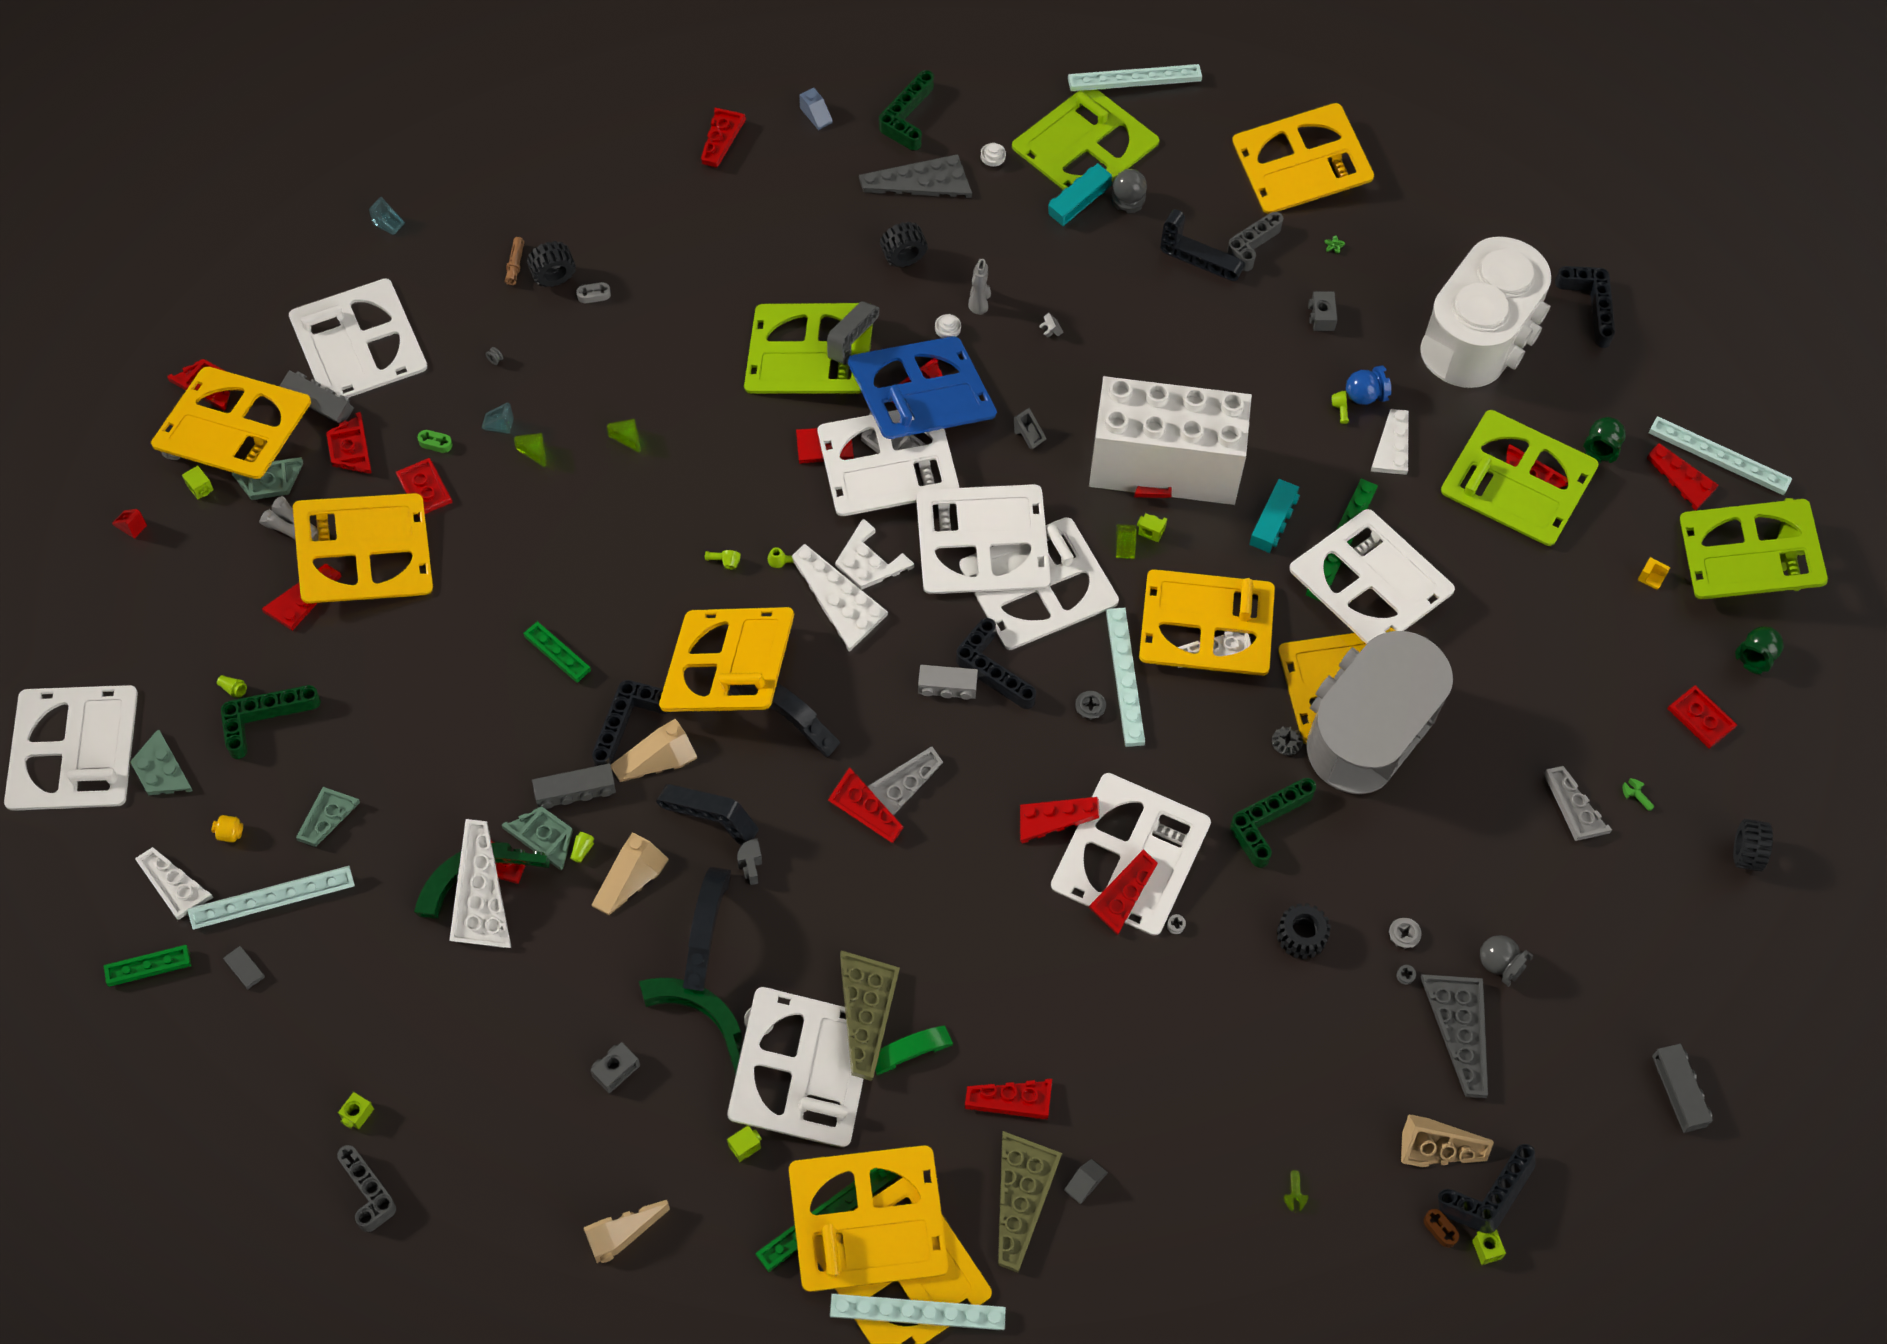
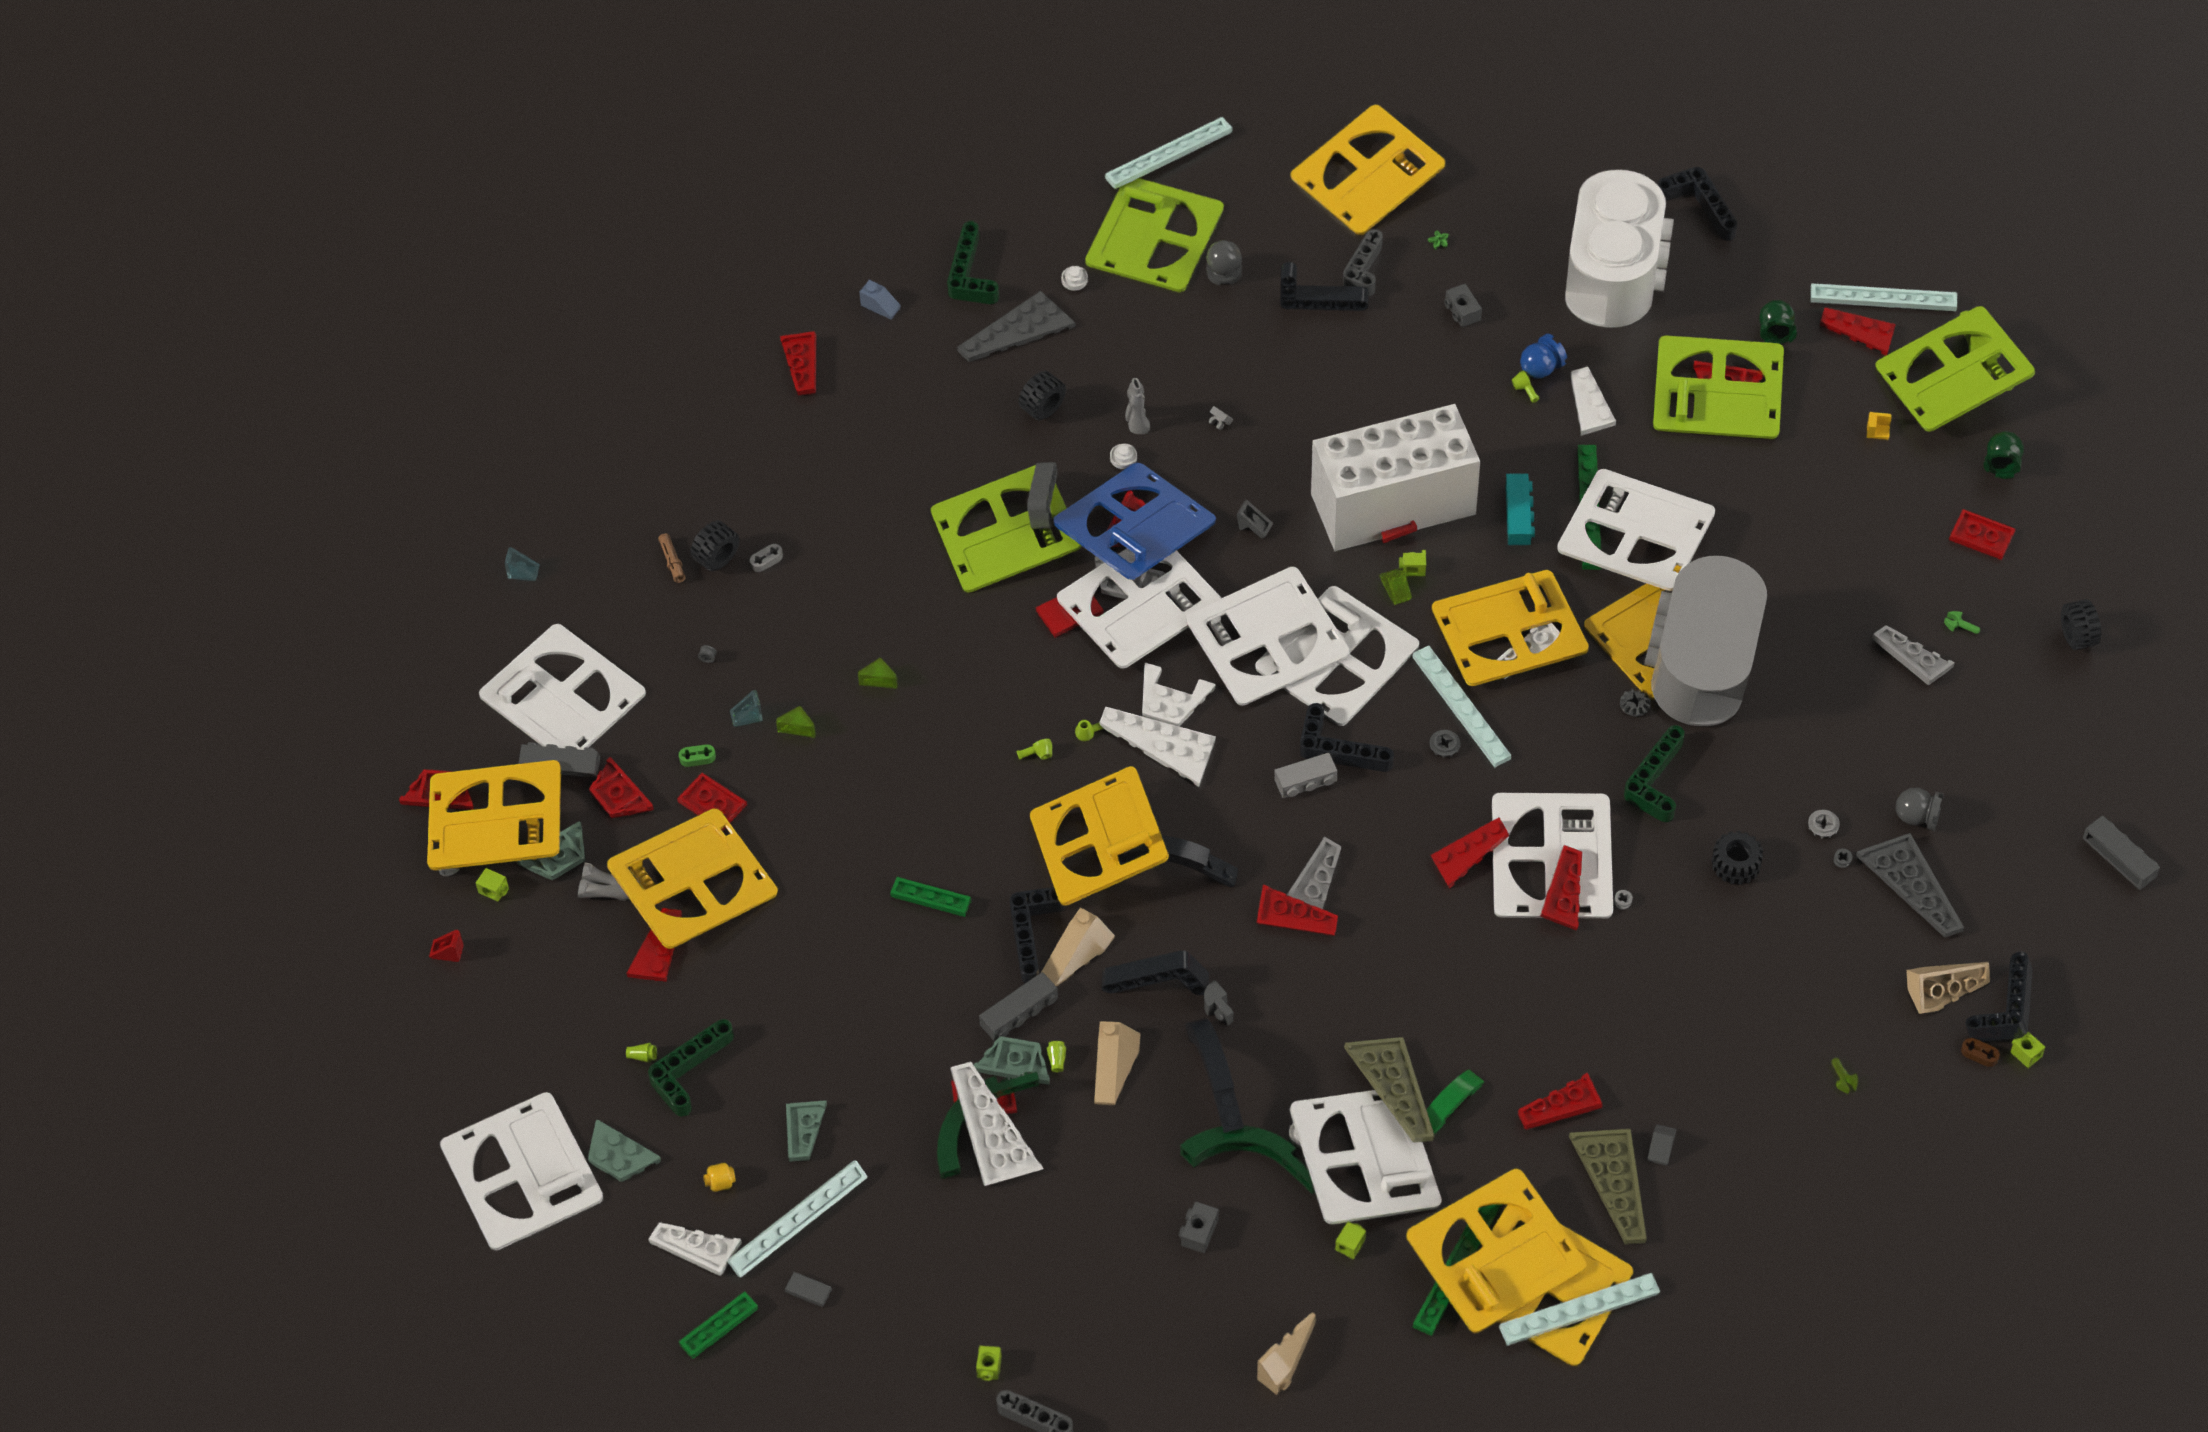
camera: 20 degrees left, 5 degrees down
(1080, 194) = (1179, 284): teal brick -> none

